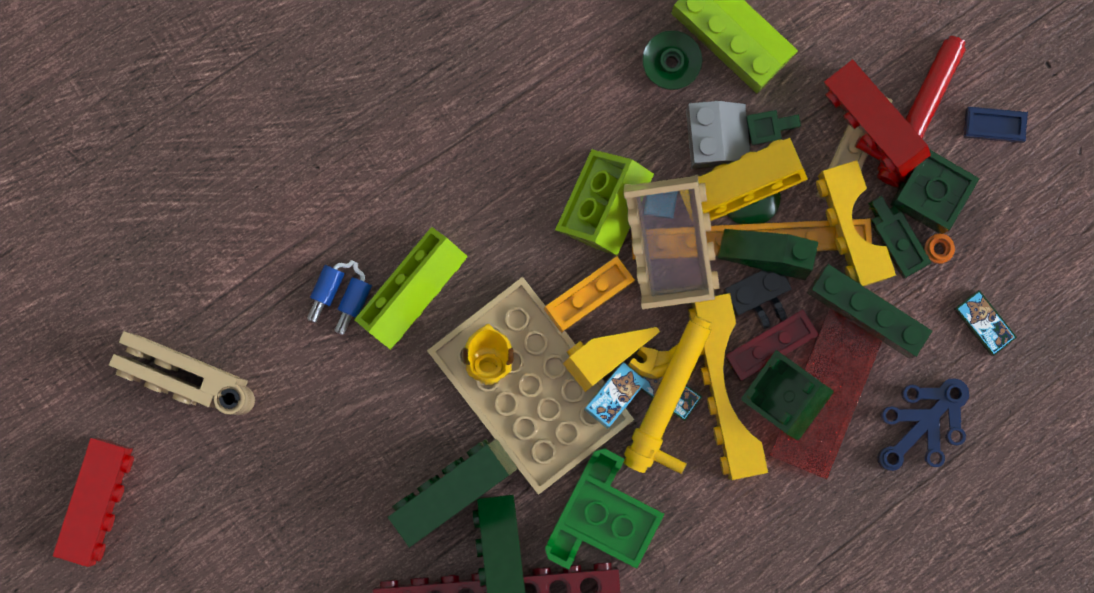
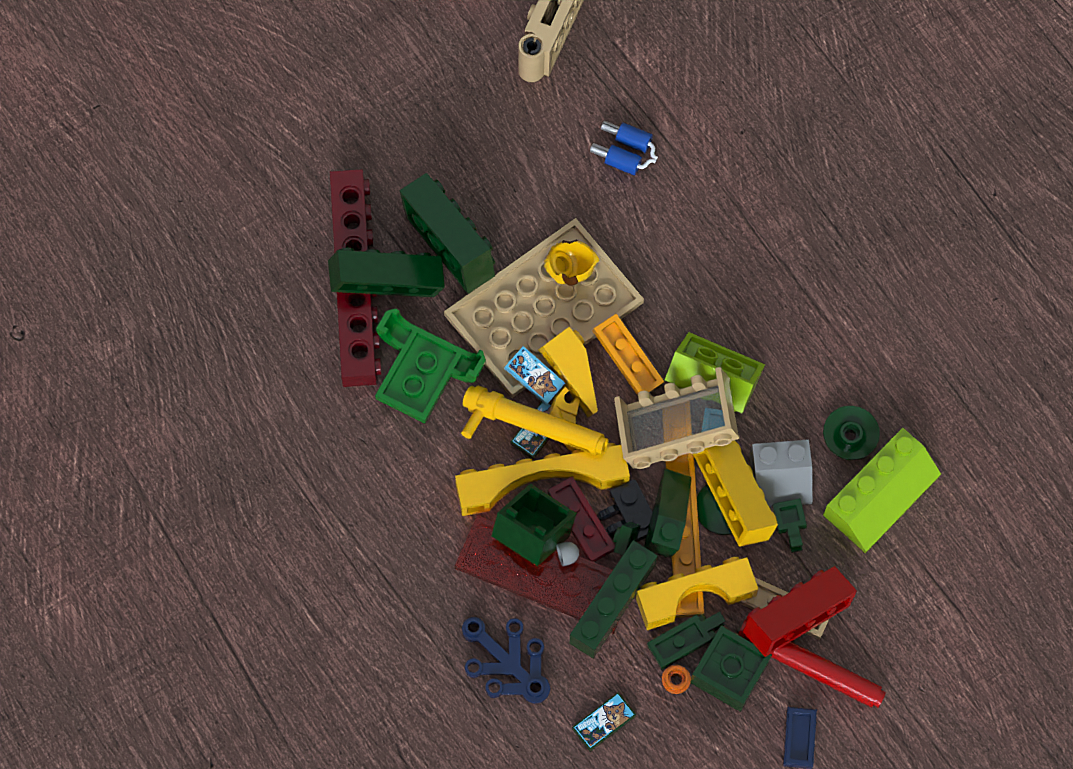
camera: 90 degrees right, 15 degrees down
(411, 288) = (631, 203): lime brick -> none
(795, 298) = (624, 536): none -> dark green plate
(816, 358) = (567, 553): none -> light grey hinge

